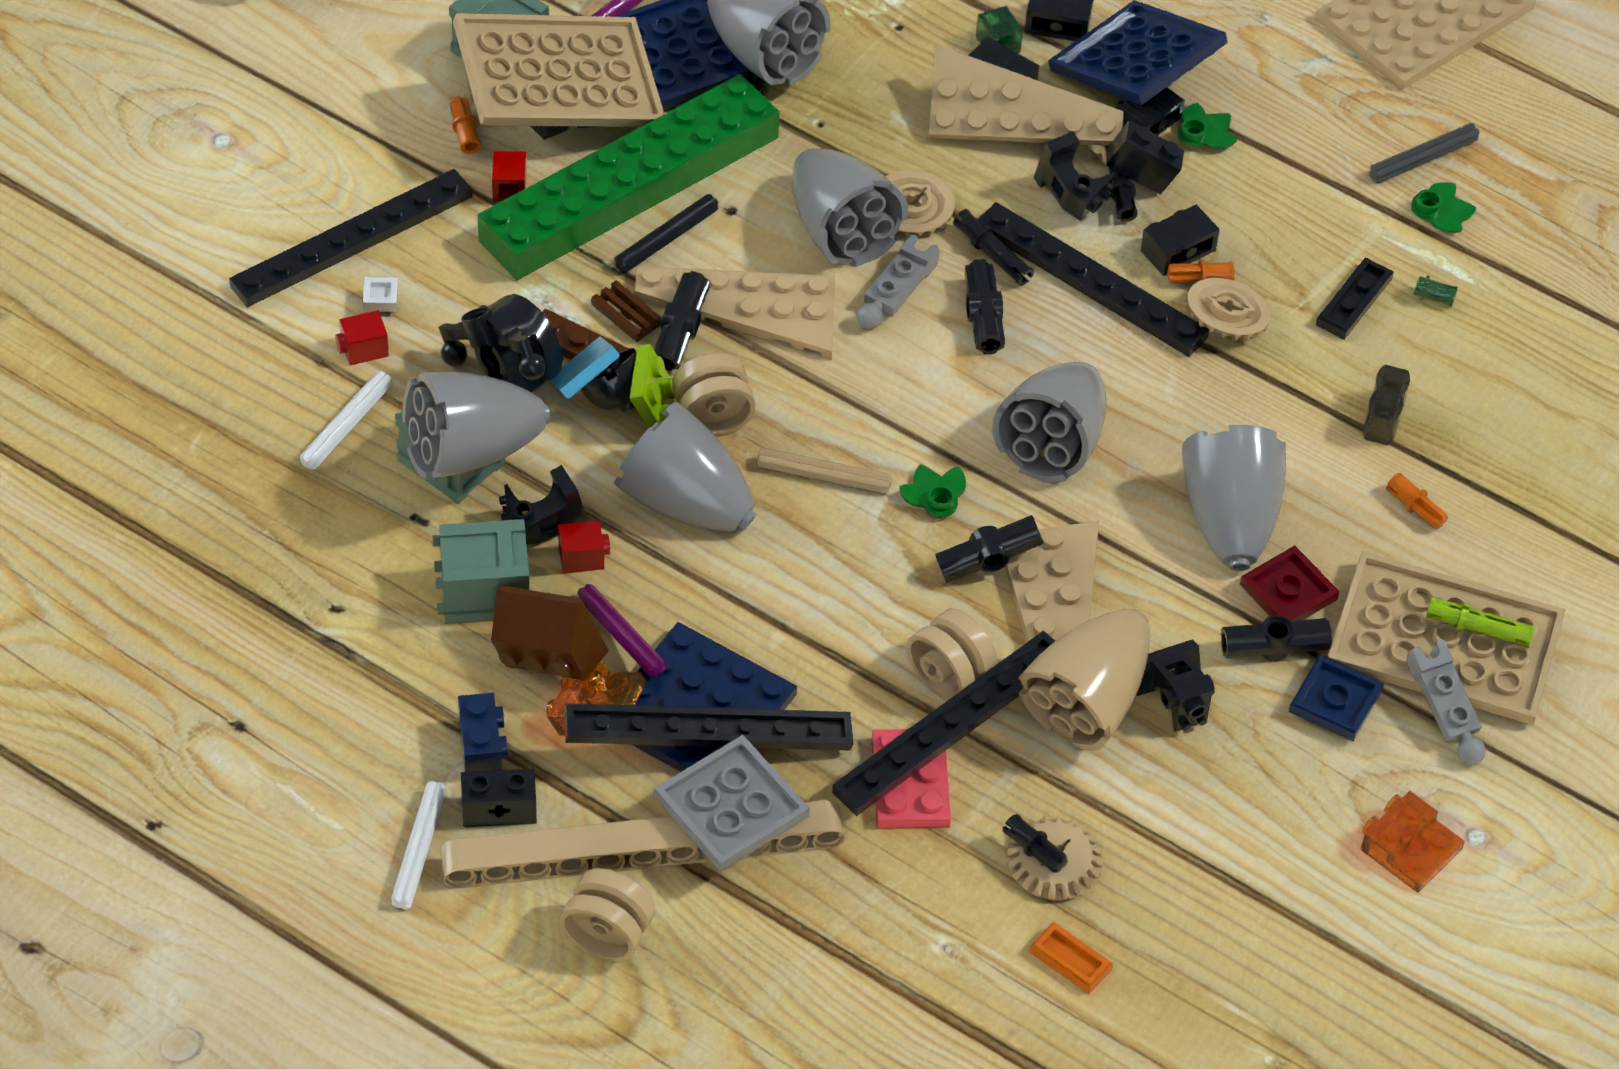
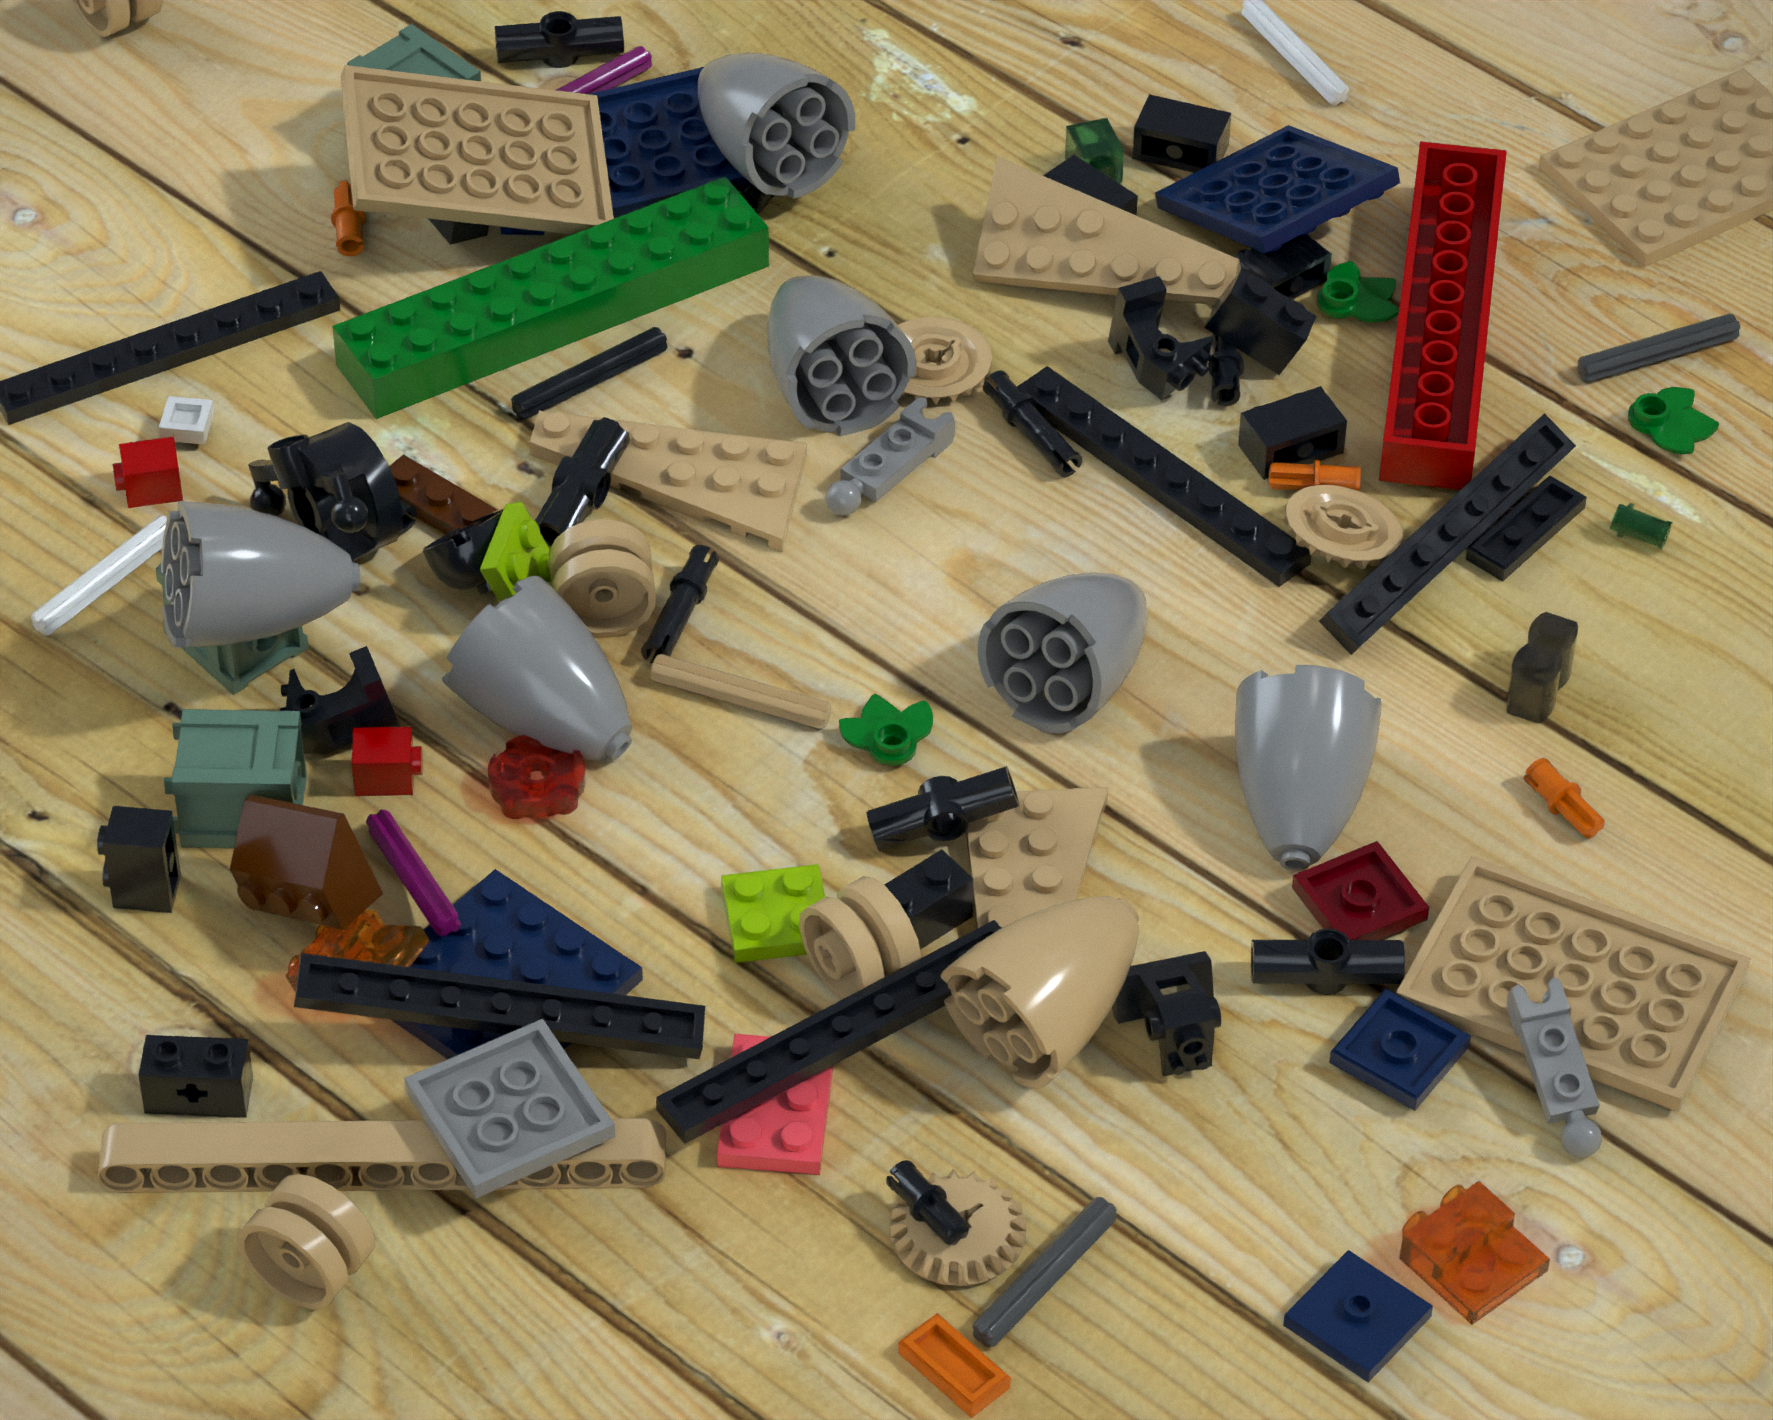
camera: 10 degrees right, 5 degrees down
(418, 845) = (75, 1130): white axle -> none
(425, 638) = (140, 858): none -> black brick
(480, 733) = (190, 986): dark blue brick -> none
(508, 174) = (390, 278): red brick -> none
(585, 367) = (433, 529): medium azure tile -> none
(630, 307) = (520, 462): reddish brown tile -> none
(692, 565) = (536, 798): none -> clear red plate
(771, 397) = (687, 591): none -> black pin
(879, 634) = (766, 910): none -> lime plate
(984, 306) = (1004, 498): black piece -> none
(996, 612) = (934, 896): none -> black brick
(1121, 884) = (1044, 1272): none -> dark grey axle
(1272, 142) = (1443, 317): none -> red brick
(1302, 308) = (1446, 534): none -> black plate
(1341, 894) = (1358, 1316): none -> dark blue plate
(1486, 623) = (1614, 960): lime pin -> none

